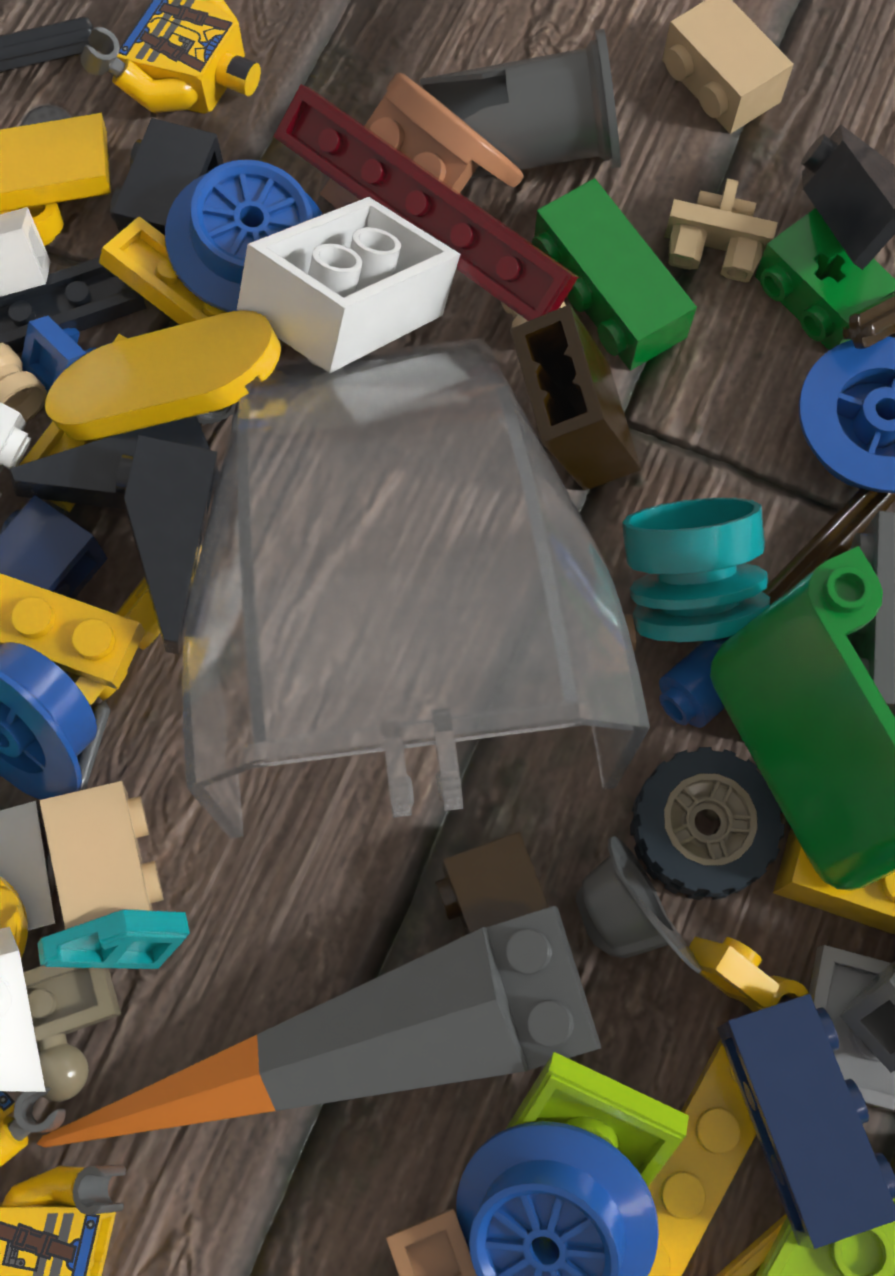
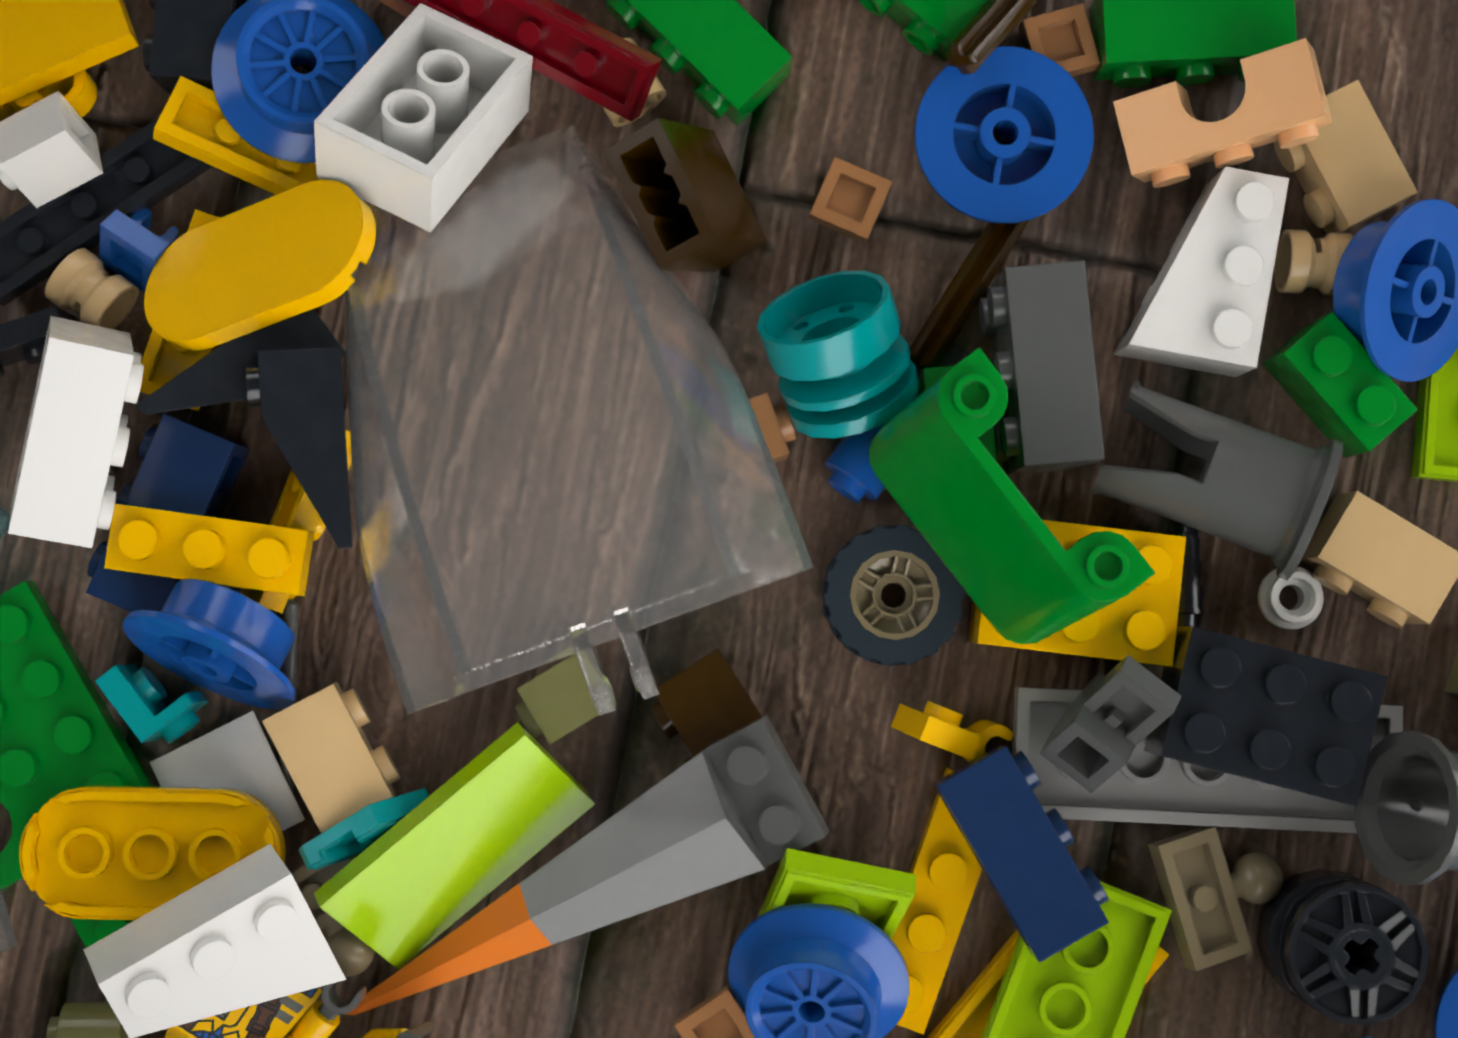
camera: 15 degrees left, 15 degrees up
(197, 982) = (455, 847): none -> lime tile
(351, 852) = (557, 701): none -> olive brick
(625, 910) = (835, 696): dark grey piece -> none
(726, 448) = (850, 200): none -> medium nougat plate

